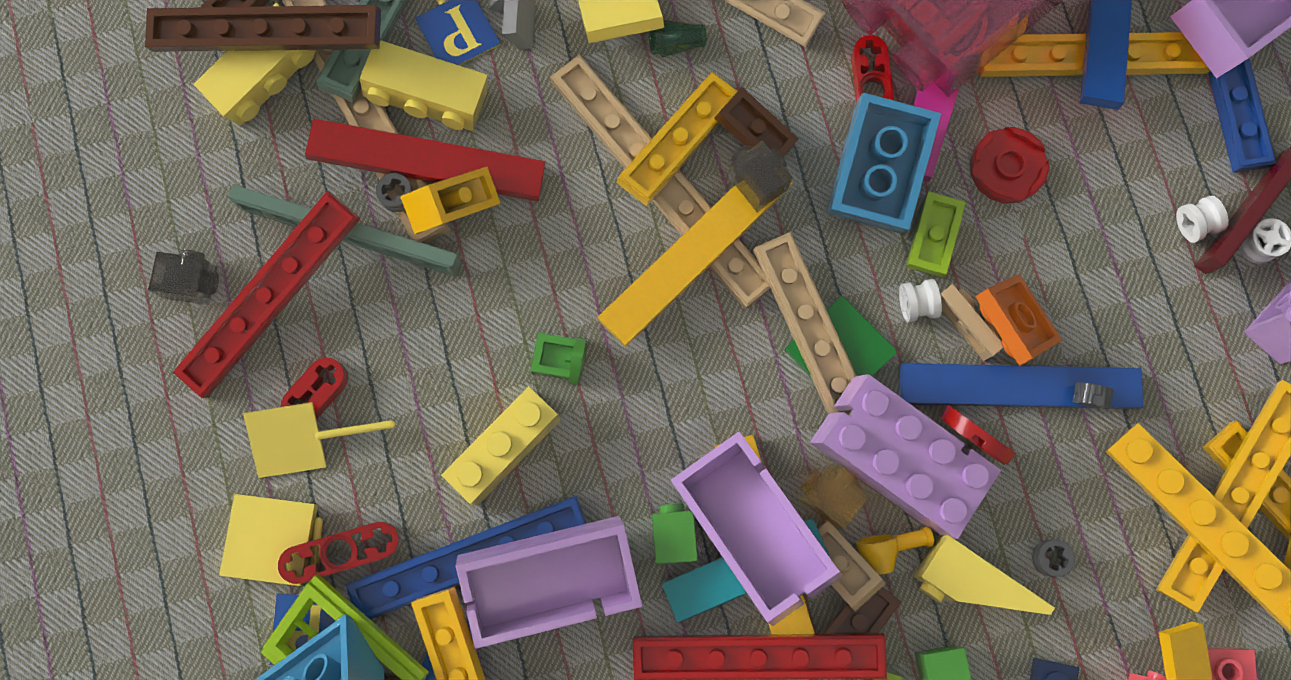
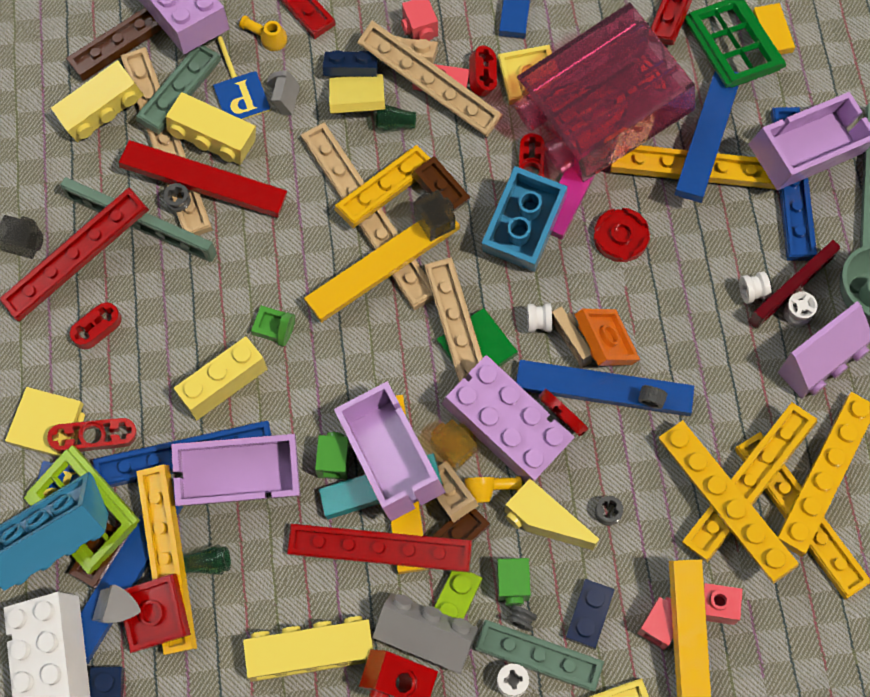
camera: 10 degrees right, 10 degrees down
(263, 28) = (105, 75): reddish brown plate -> none
(290, 440) = (72, 355): light yellow piece -> none
(450, 199) = (214, 205): yellow slope -> none
(935, 234) = (558, 274): lime plate -> none

